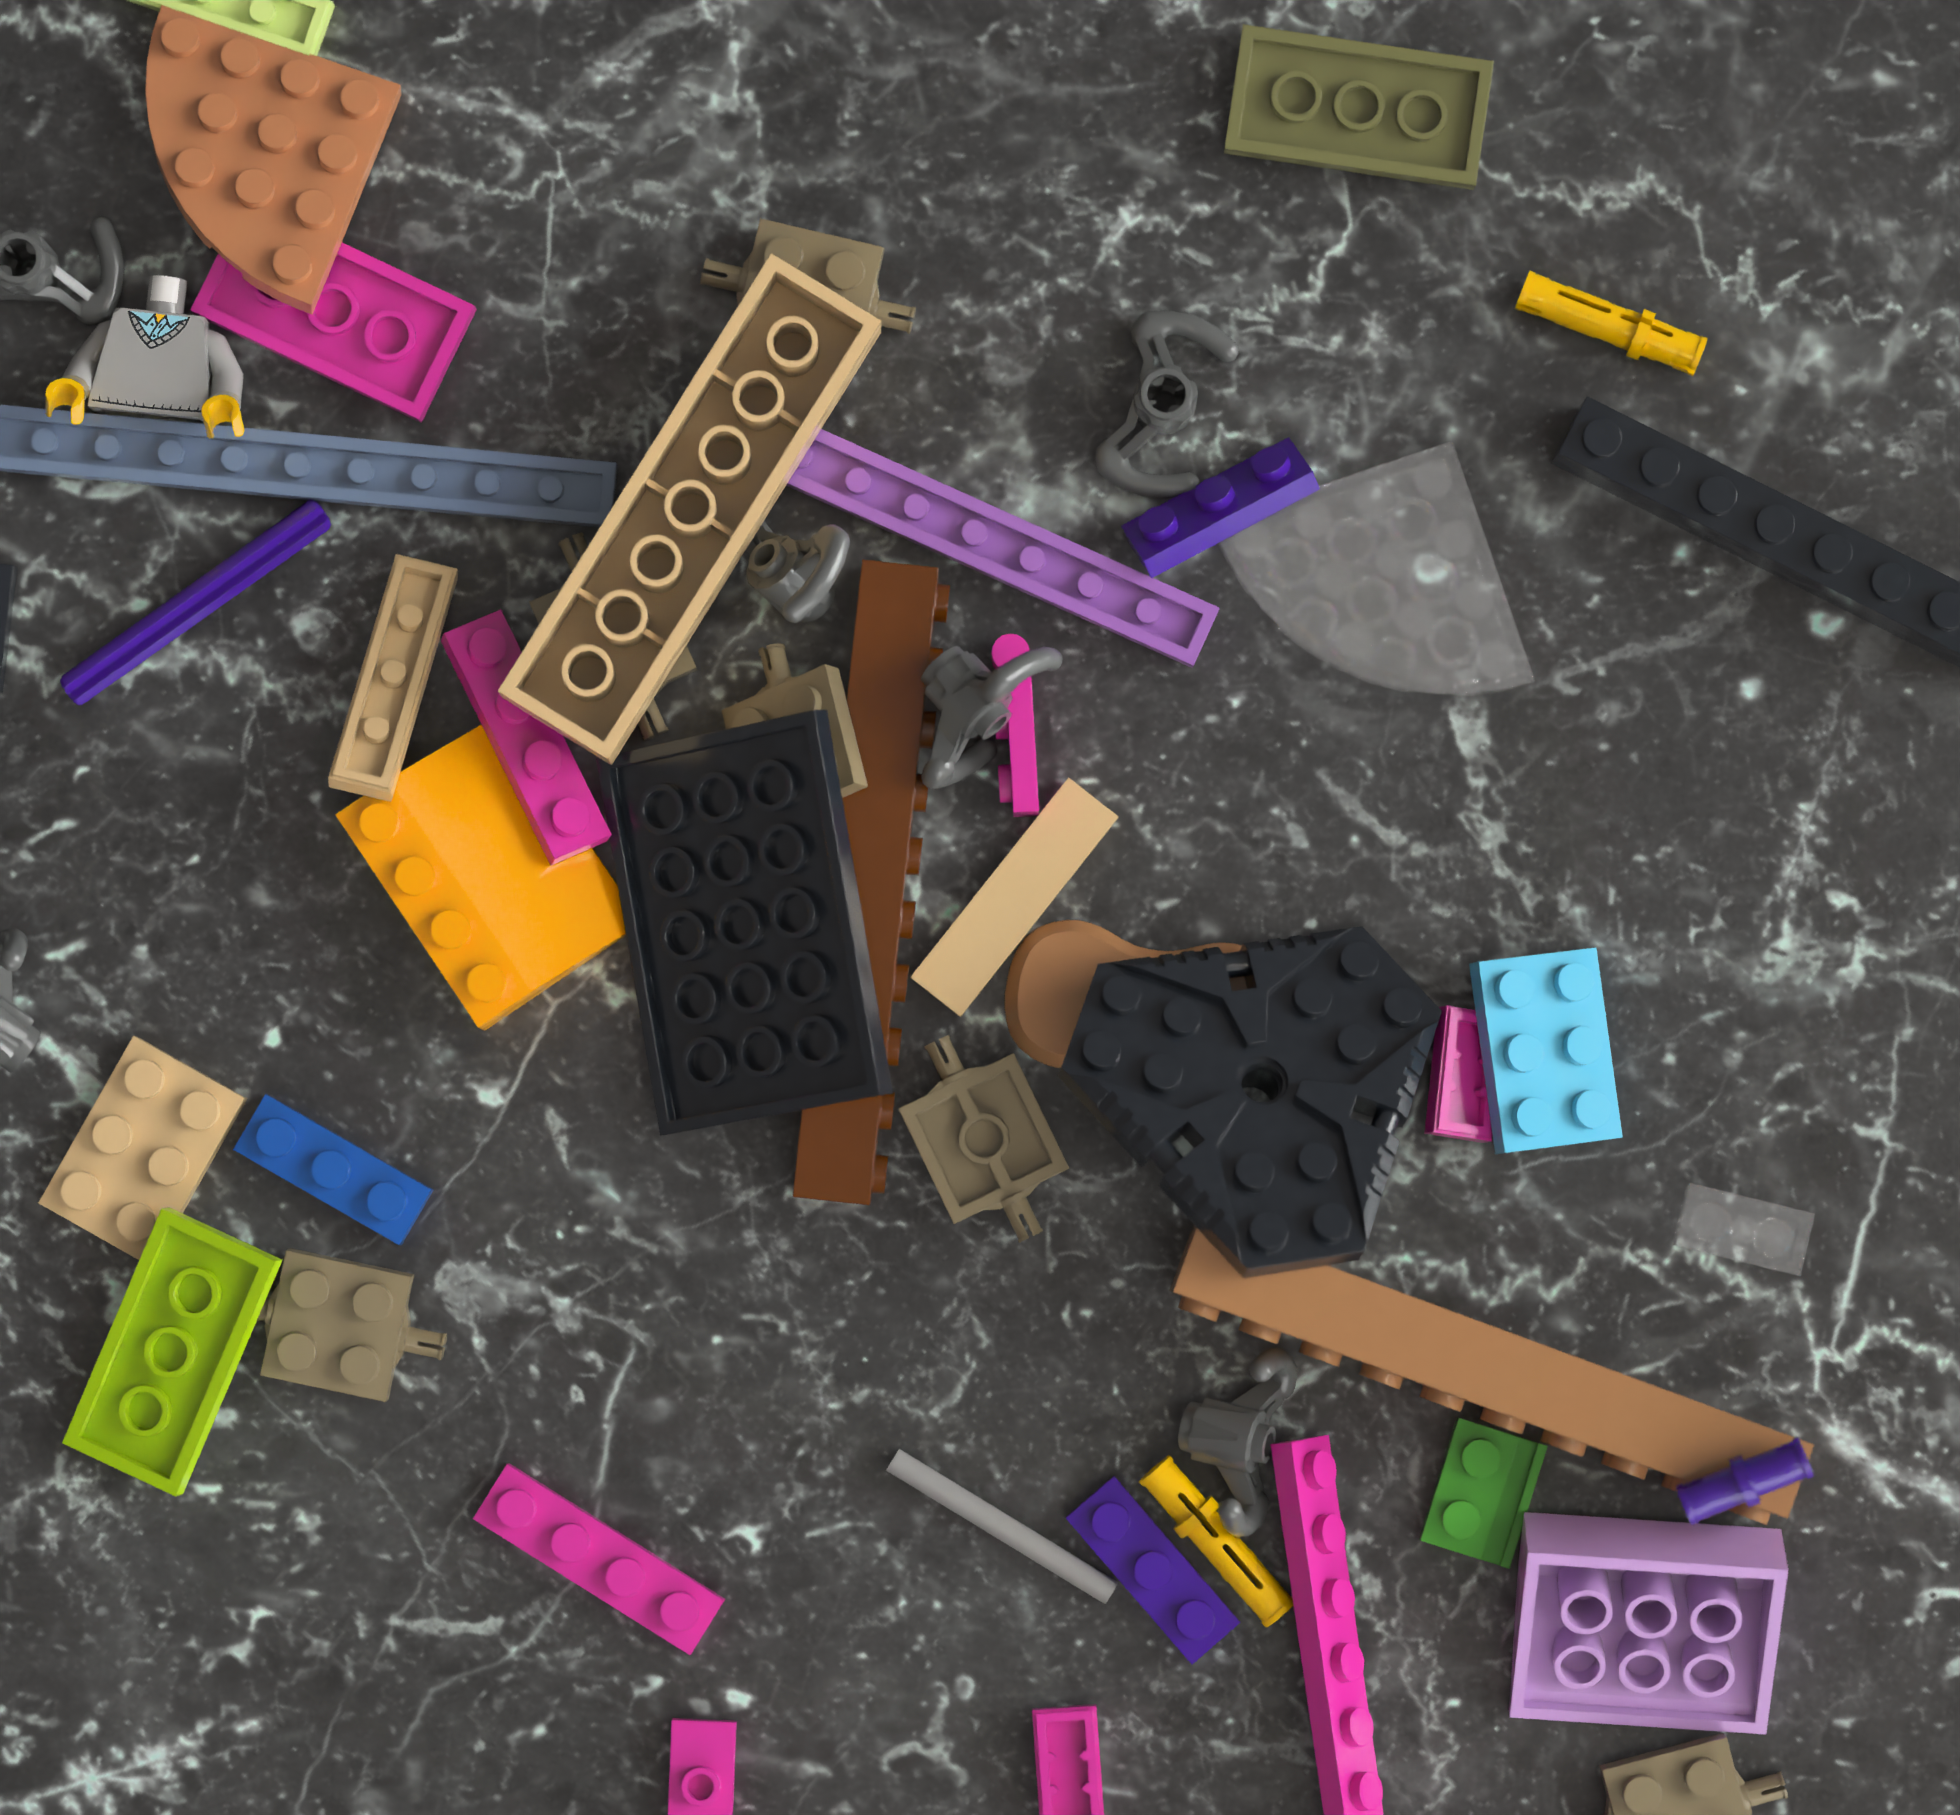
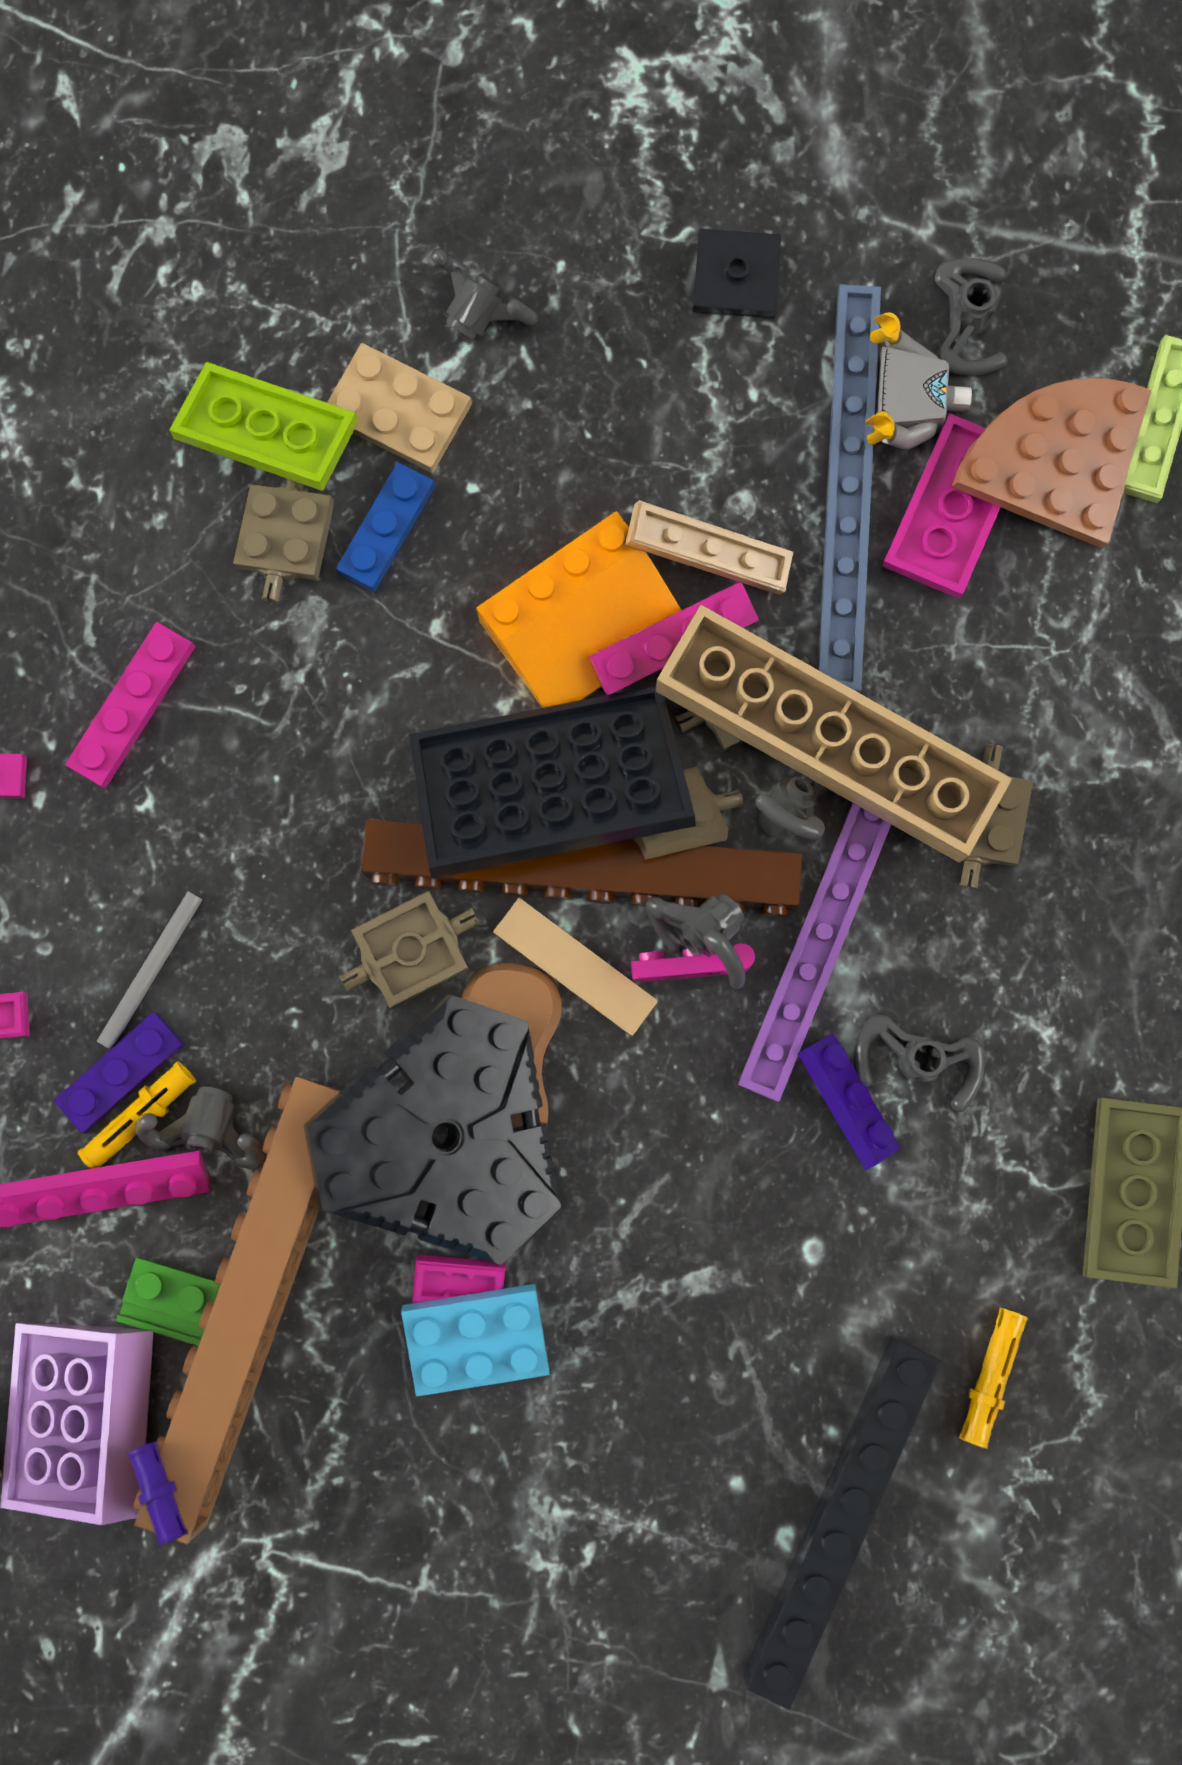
camera: 90 degrees right, 5 degrees down
(195, 602) = (756, 427): dark purple axle -> none
(1388, 579) = (804, 1221): clear plate -> none
(1743, 1229) = (352, 1486): clear plate -> none

